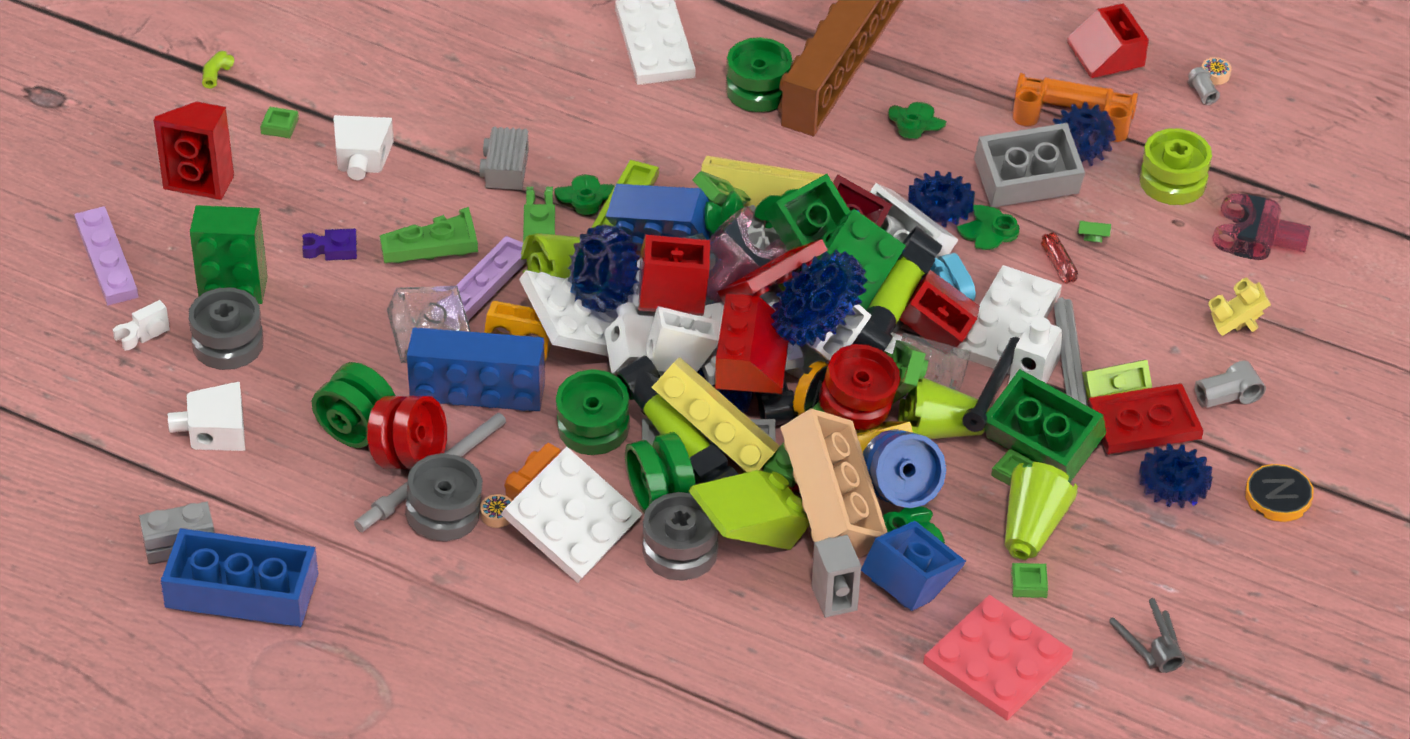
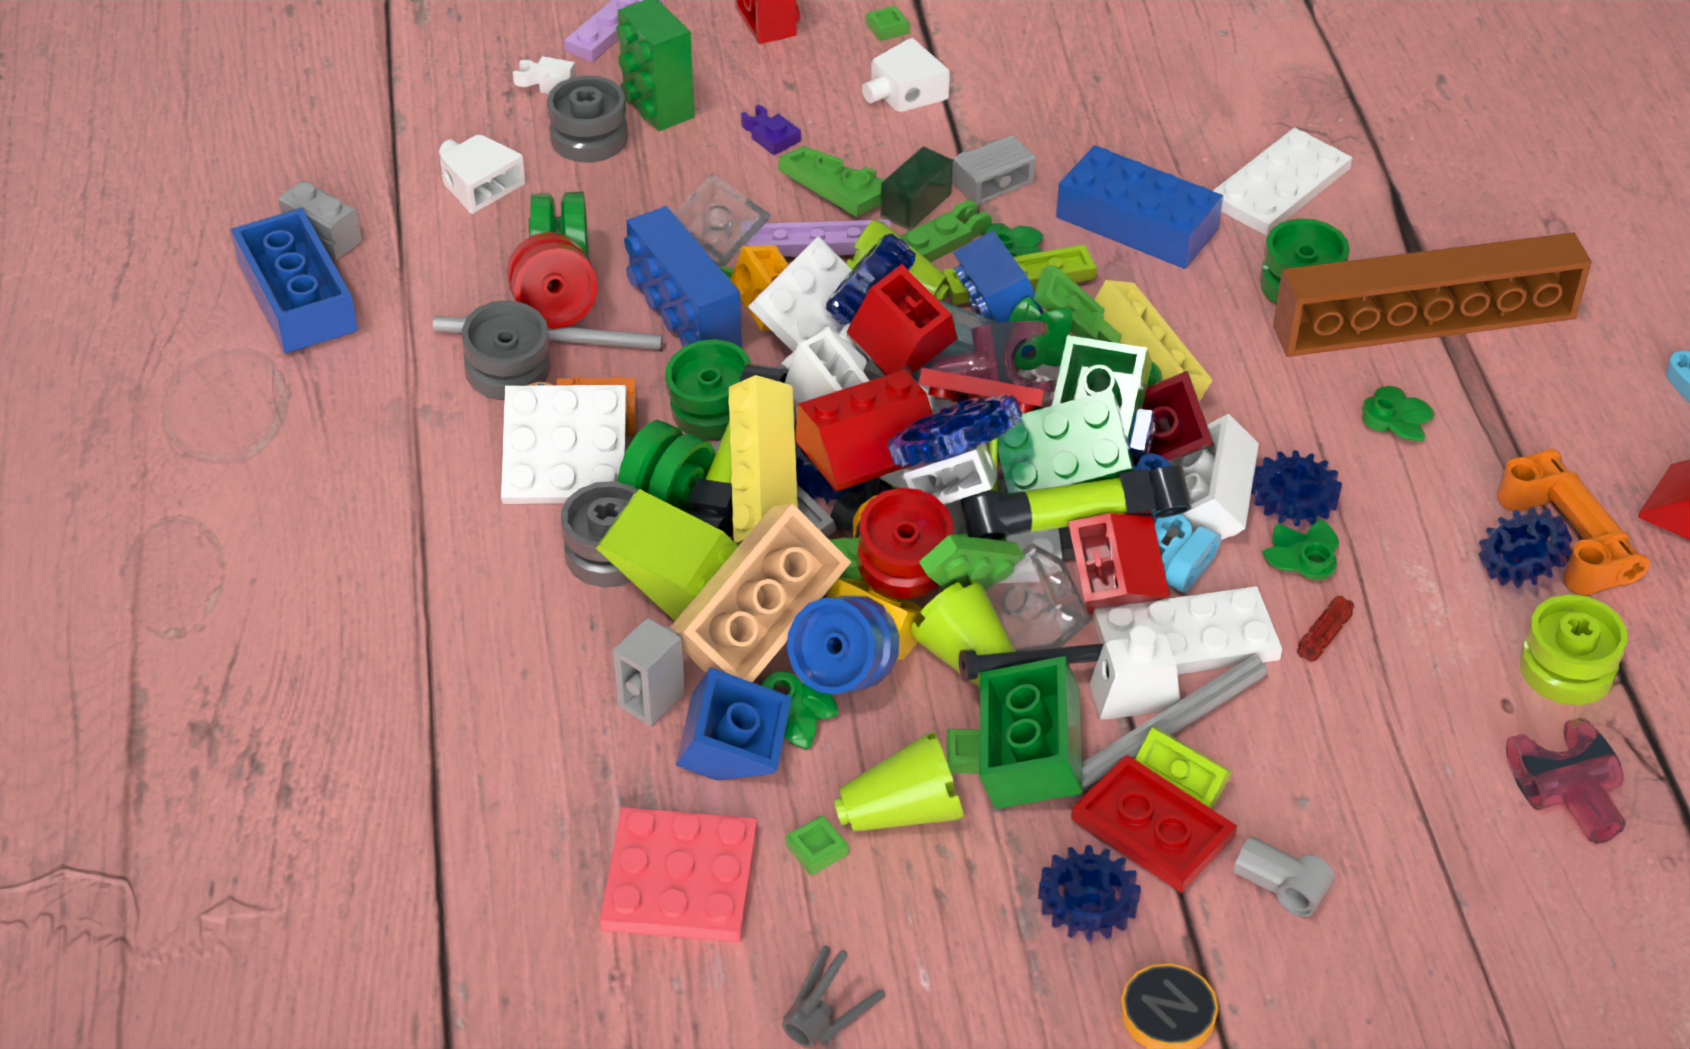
camera: 55 degrees right, 0 degrees up
(488, 205) = (916, 188): none -> clear green brick
(620, 113) = (1139, 206): none -> blue brick
(1029, 165) = (1417, 524): light grey brick -> none
(1094, 231) = (1395, 633): bright green plate -> none
(1240, 310) = (1412, 823): light yellow hips -> none

